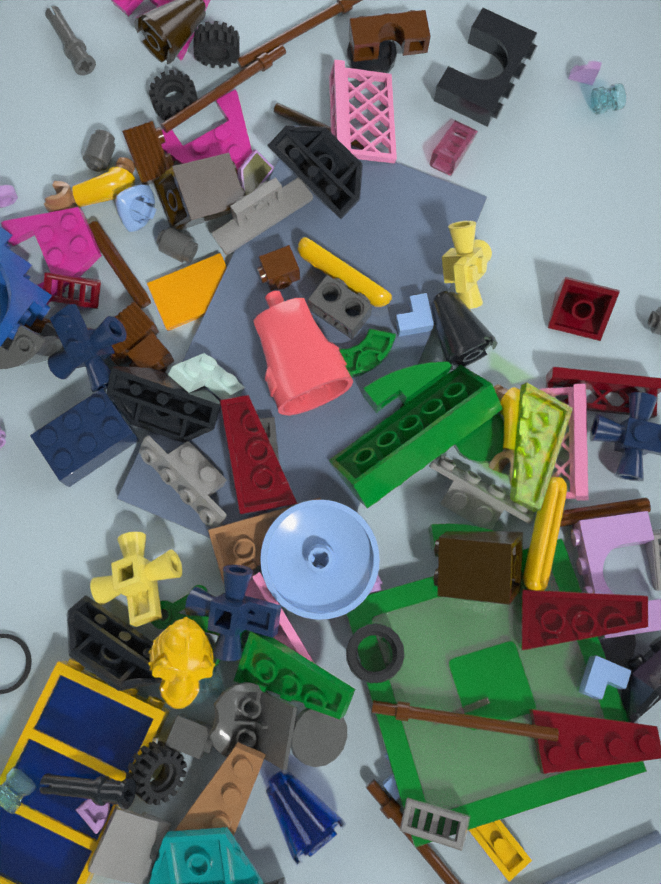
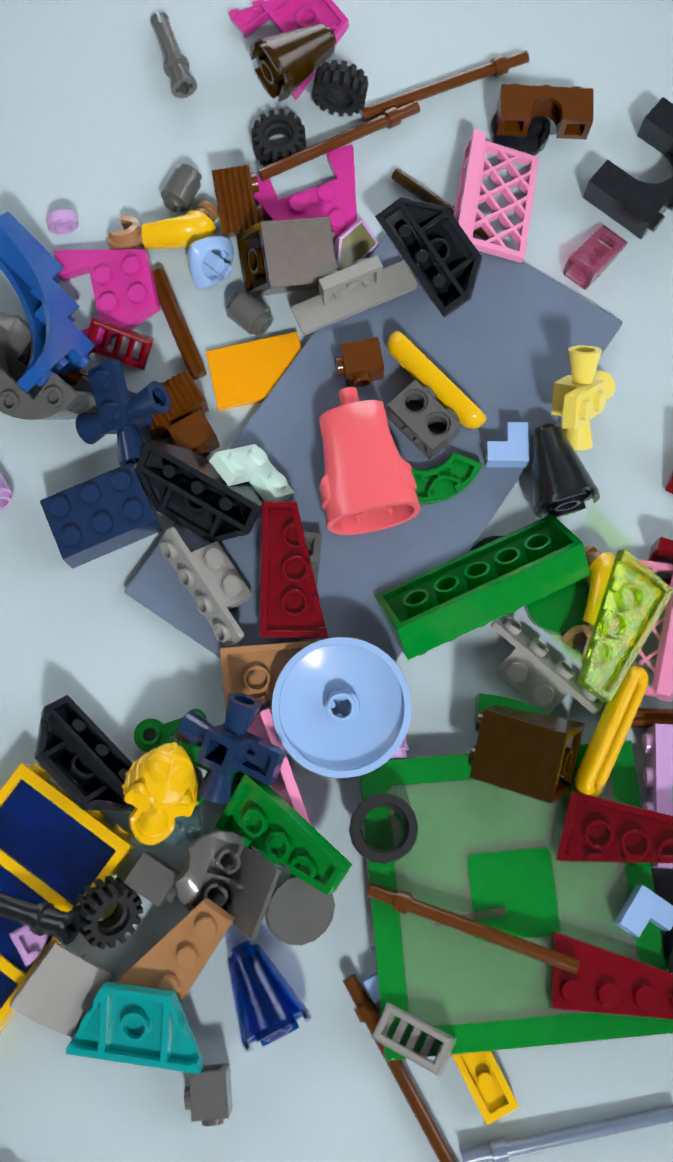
camera: 15 degrees right, 0 degrees up
(137, 579) = (128, 687): light yellow brick -> none
(404, 384) = (480, 523): green slope -> none

